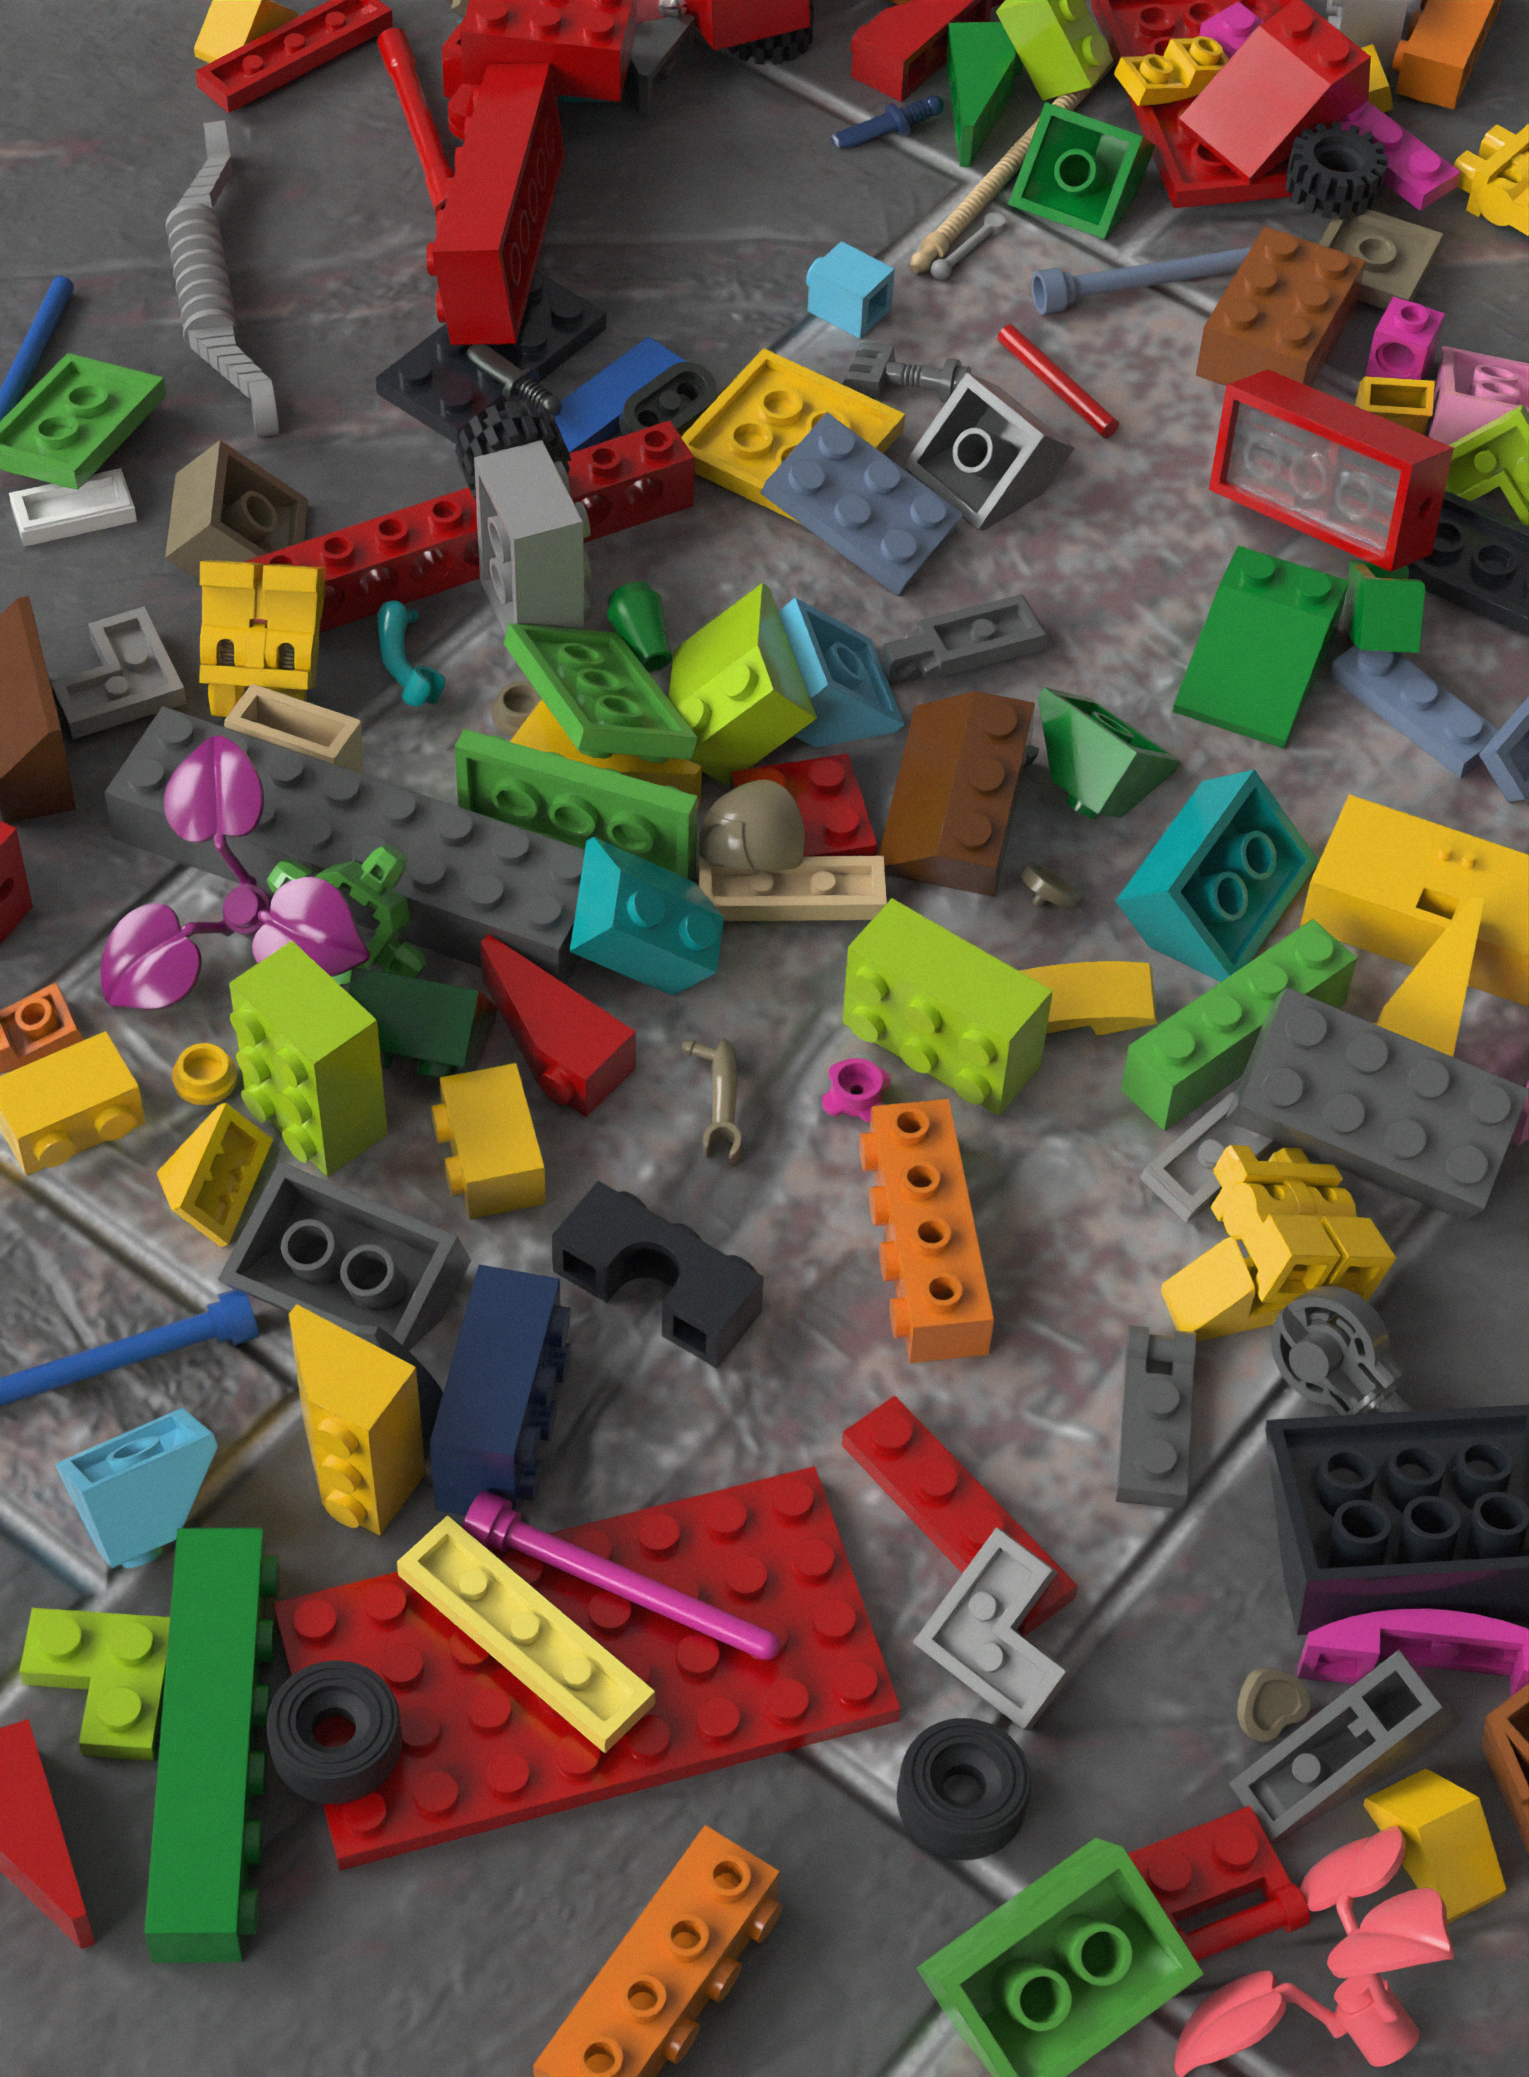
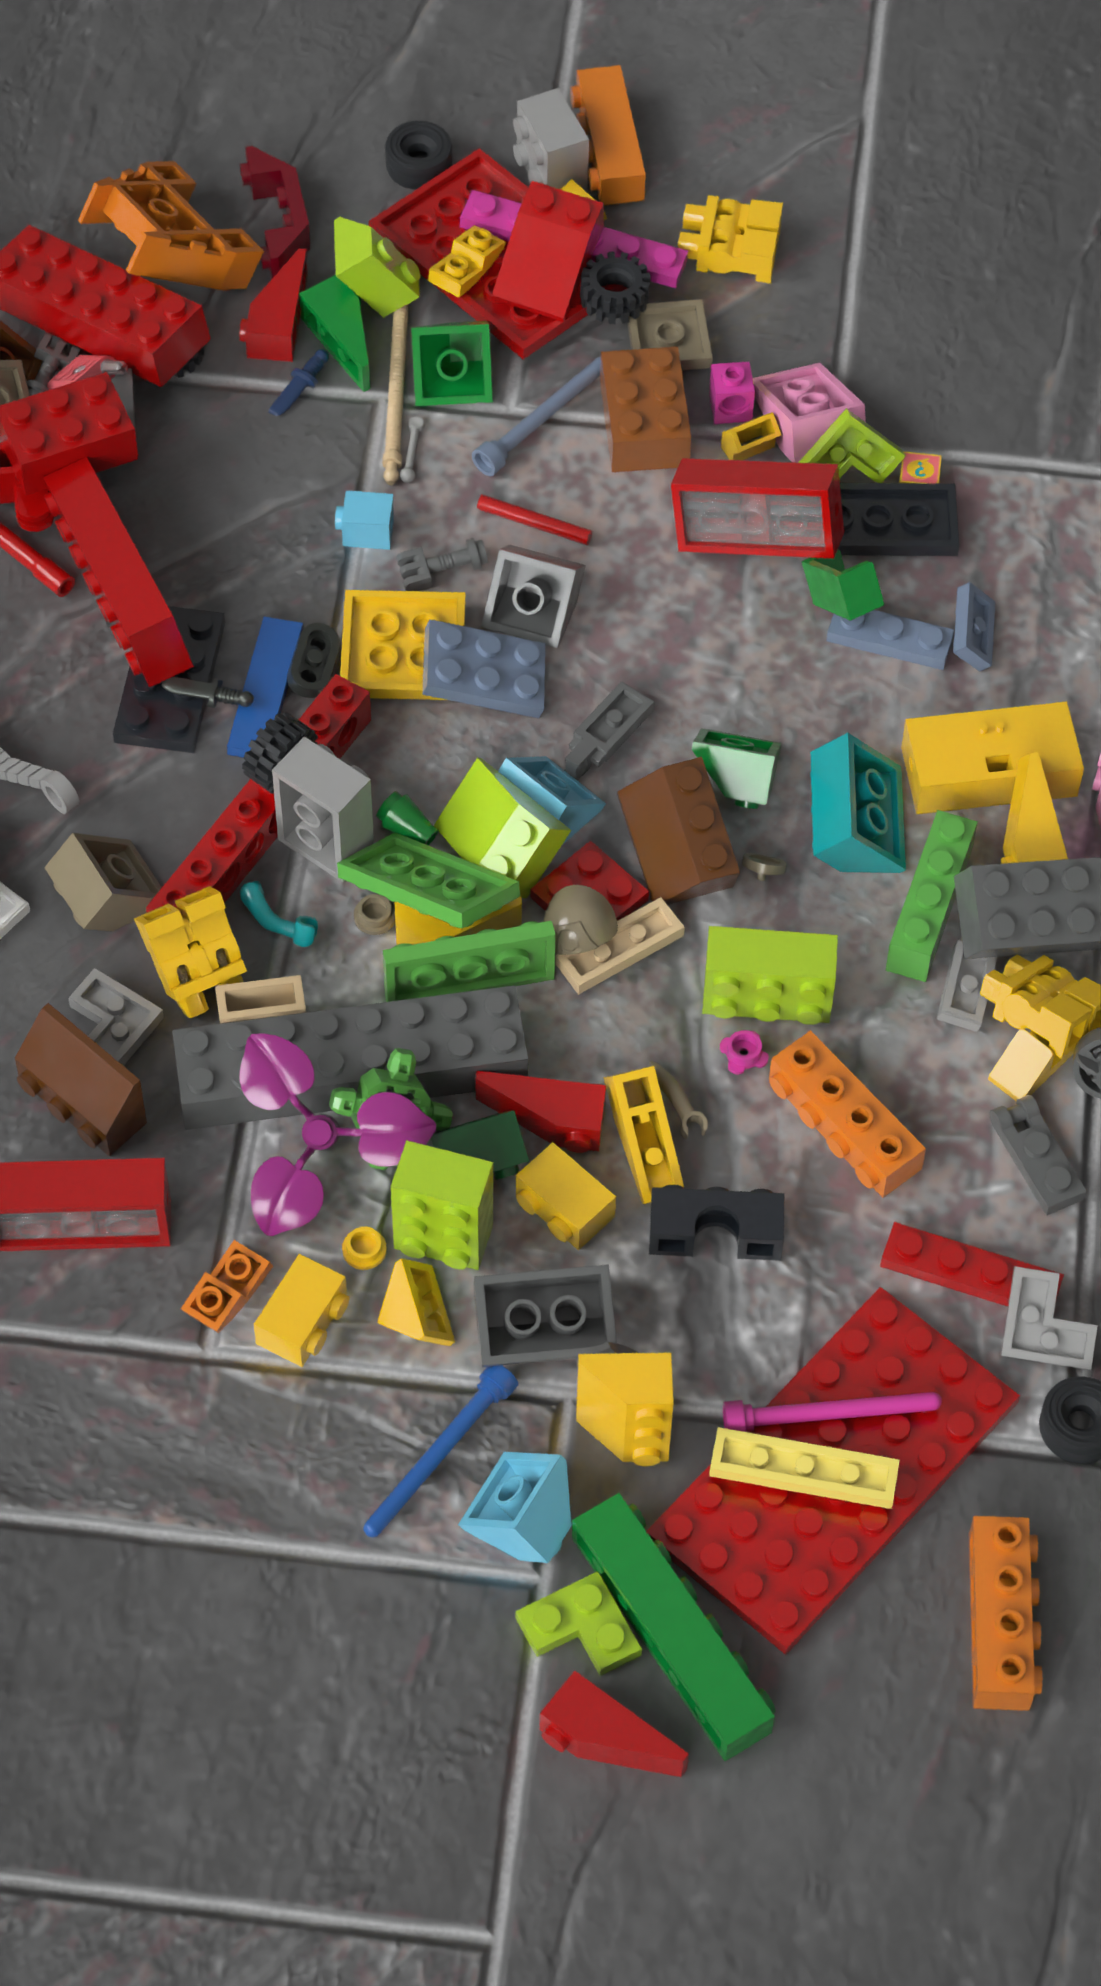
camera: 30 degrees left, 5 degrees up
(340, 1772) = (740, 1606): black tyre -> none
(500, 1390) = (683, 1322): dark blue brick -> none
(644, 920) = (562, 1012): teal slope -> none
(652, 1109) = (643, 1129): none -> yellow slope
(1099, 994) = (846, 915): yellow slope -> none
(1261, 646) = (782, 644): green slope -> none

